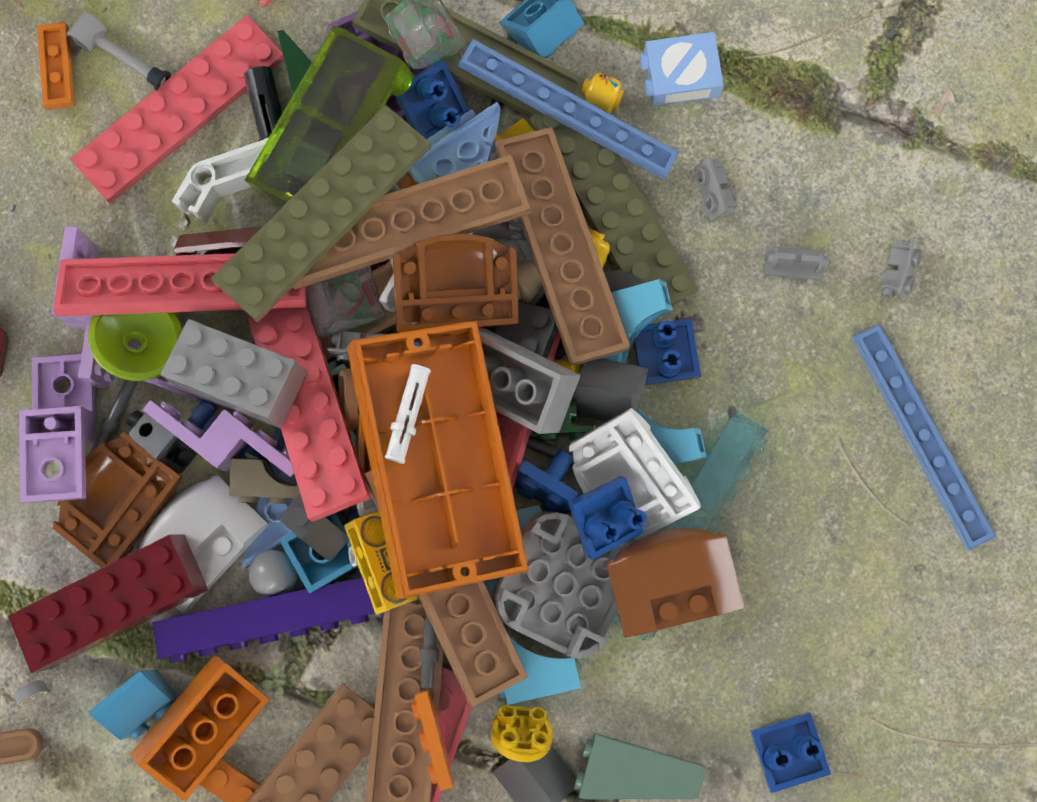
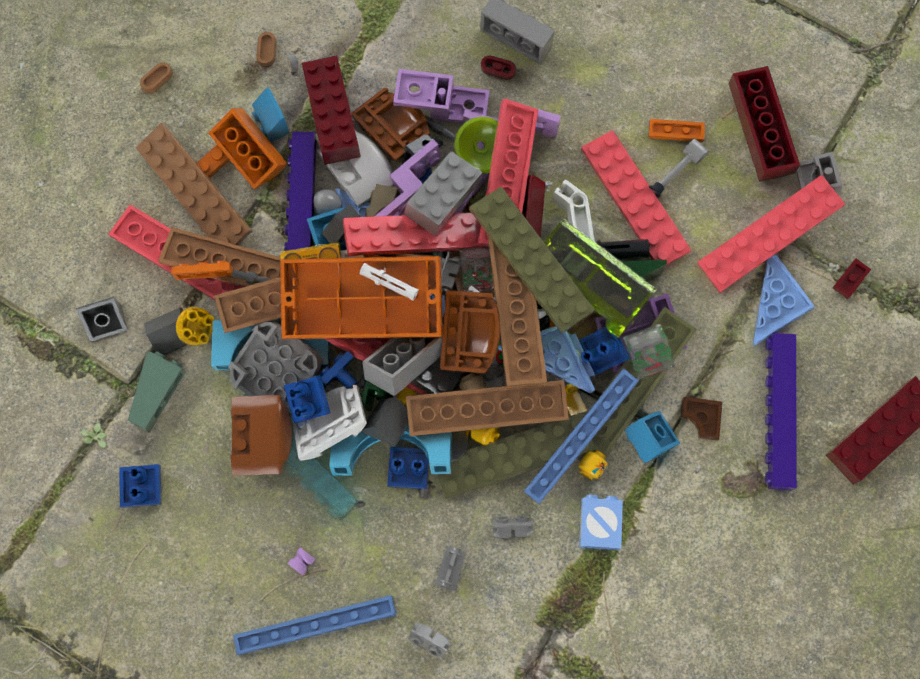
camera: 100 degrees right, 5 degrees down
(841, 475) = (301, 561): none -> lavender wheel

